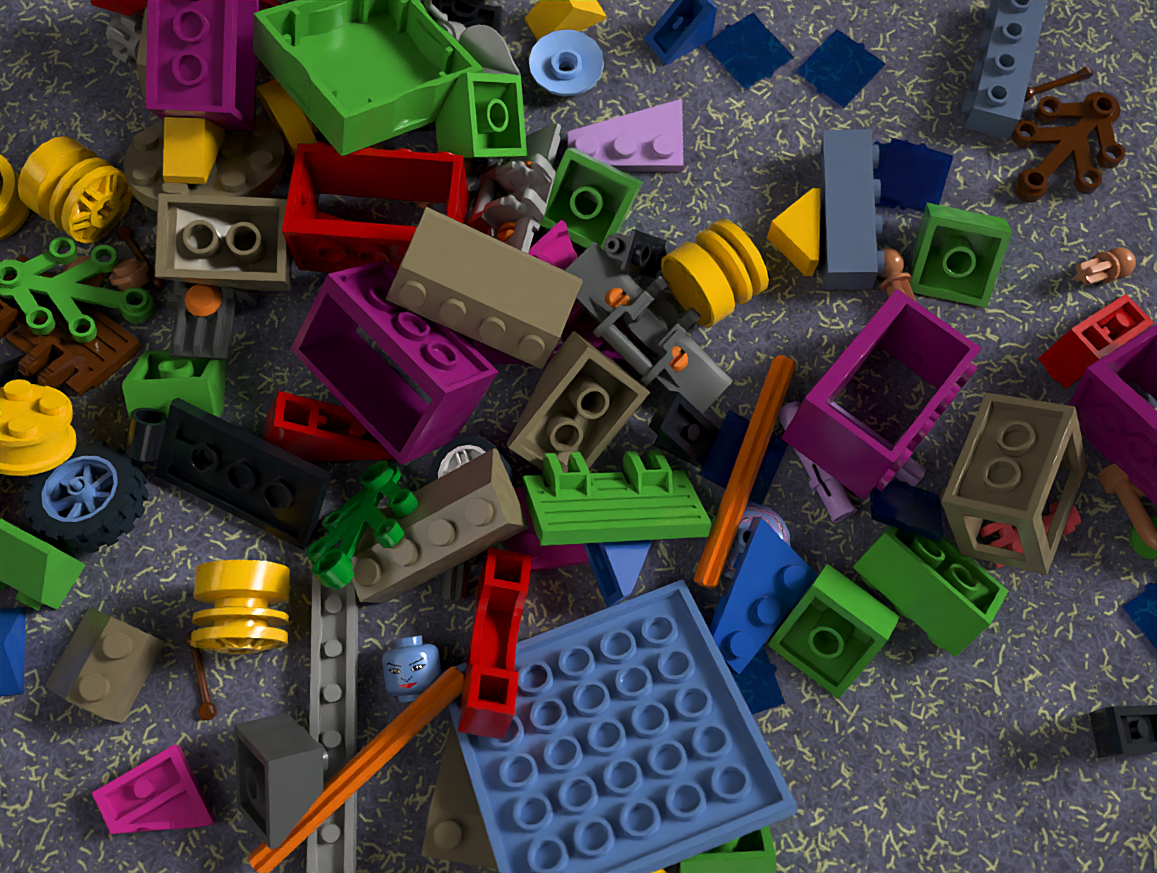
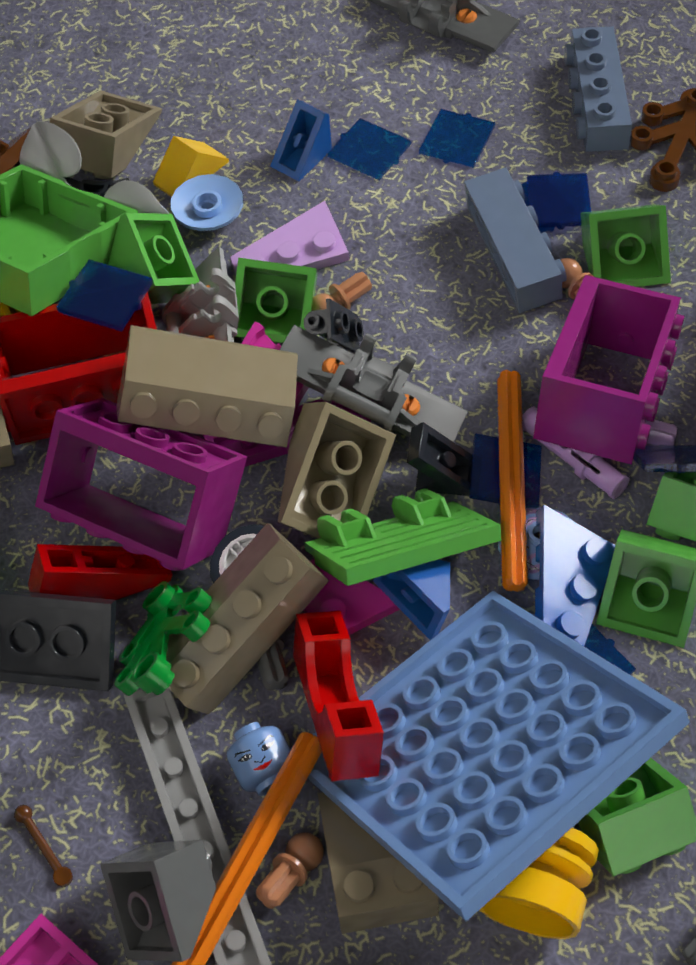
camera: 15 degrees left, 15 degrees down
(241, 600) = (66, 753): yellow wheel -> none
(419, 155) = (105, 295): none -> clear blue piece
(419, 769) = (290, 869): none -> nougat axle
(659, 212) = (345, 292): none -> nougat axle
(715, 272) = (416, 318): yellow wheel -> none
(798, 232) = (476, 272): yellow slope -> none
(1082, 74) = (669, 81): reddish brown hinge -> none

